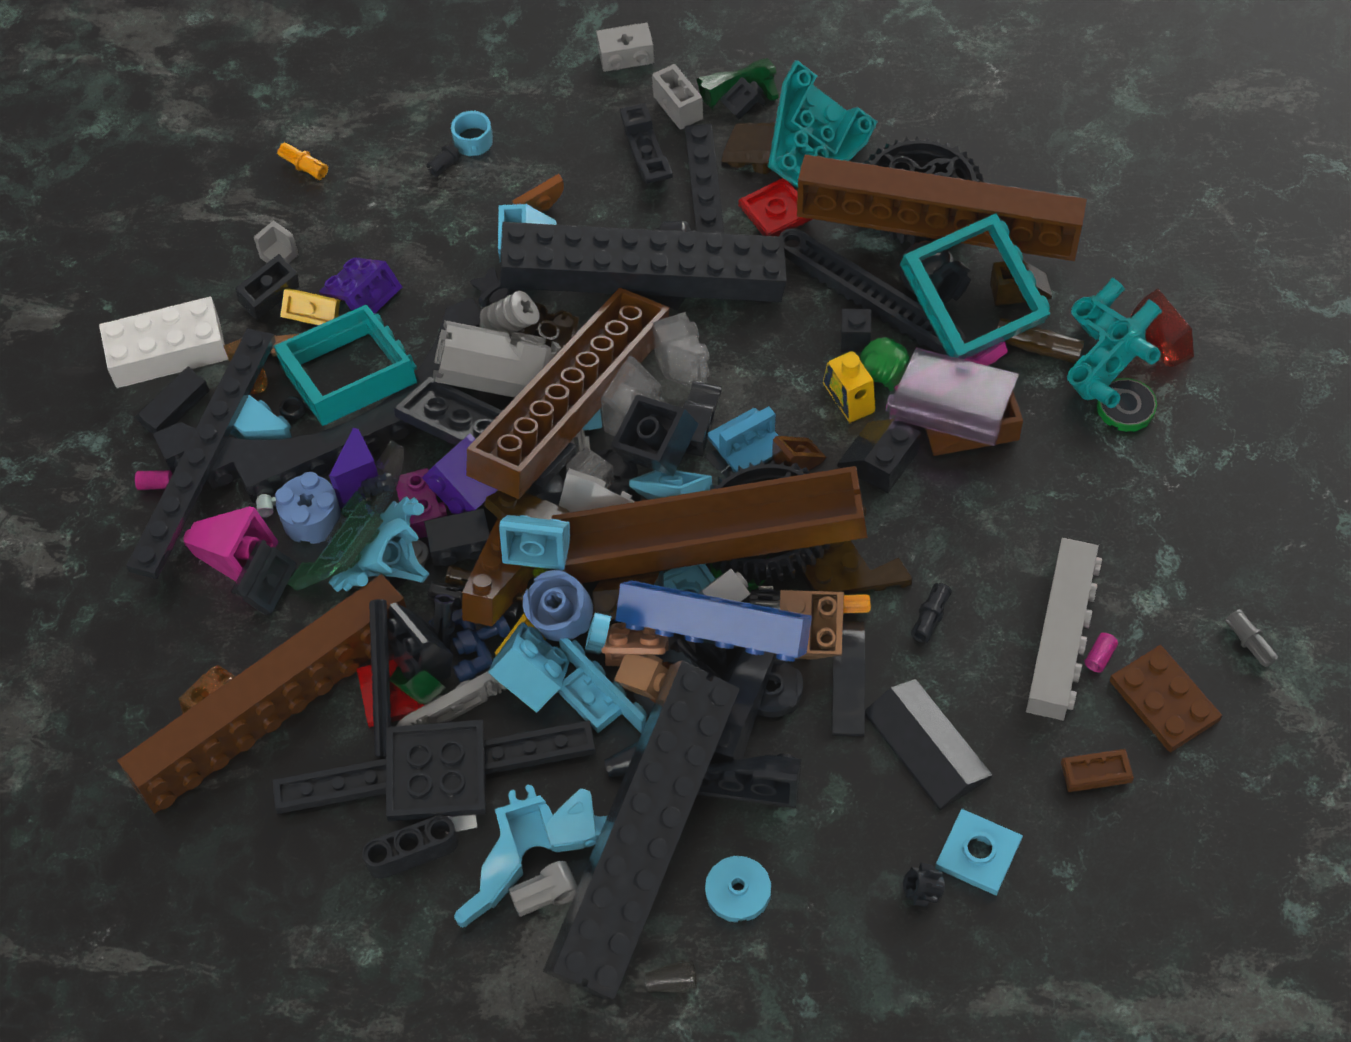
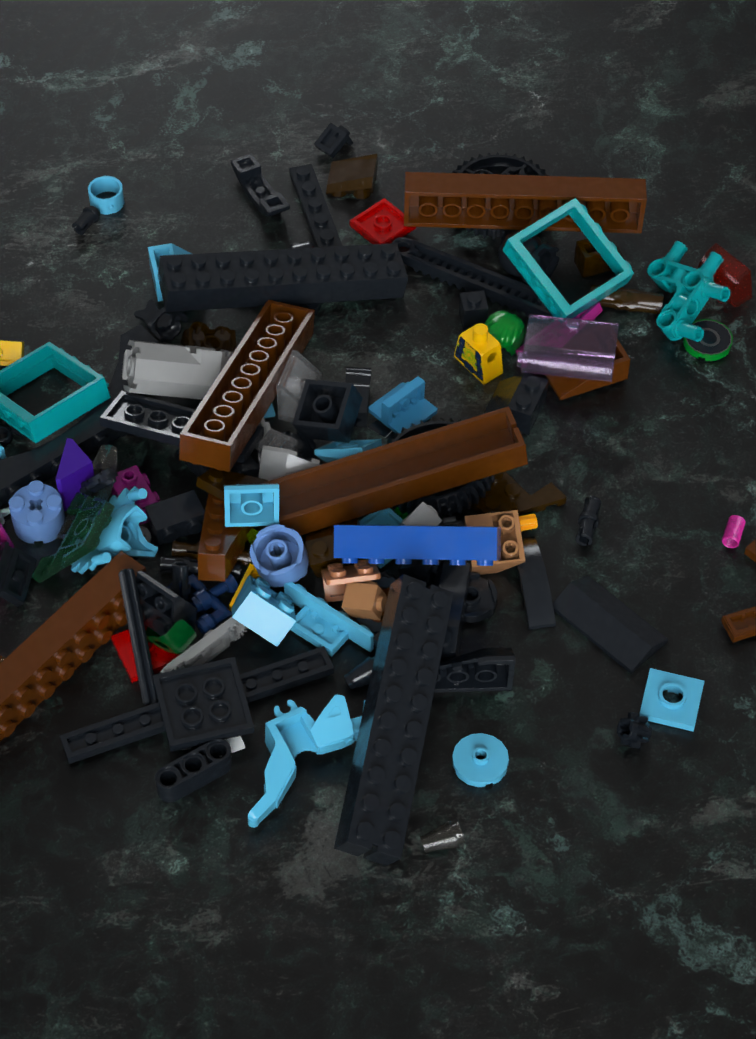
camera: 15 degrees left, 5 degrees down
(363, 283) = (40, 326): dark purple bracket -> none
(452, 485) = (164, 469): dark purple slope -> none
(510, 313) = (181, 330): light grey piece -> none
(543, 195) = (182, 235): dark orange plate -> none
(553, 886) = (323, 782): light grey piece -> none
(597, 633) = (319, 571): medium azure beam -> none
(625, 46) = (222, 111): light grey brick -> none
(677, 96) = (278, 144): light grey brick -> none
(679, 350) = (331, 343): clear slope -> none
(719, 83) = (309, 132): dark green animal -> none
(796, 450) = (446, 409): reddish brown slope -> none
(813, 126) = (400, 151): teal wedge -> none
(1063, 628) = (699, 519): light grey brick -> none

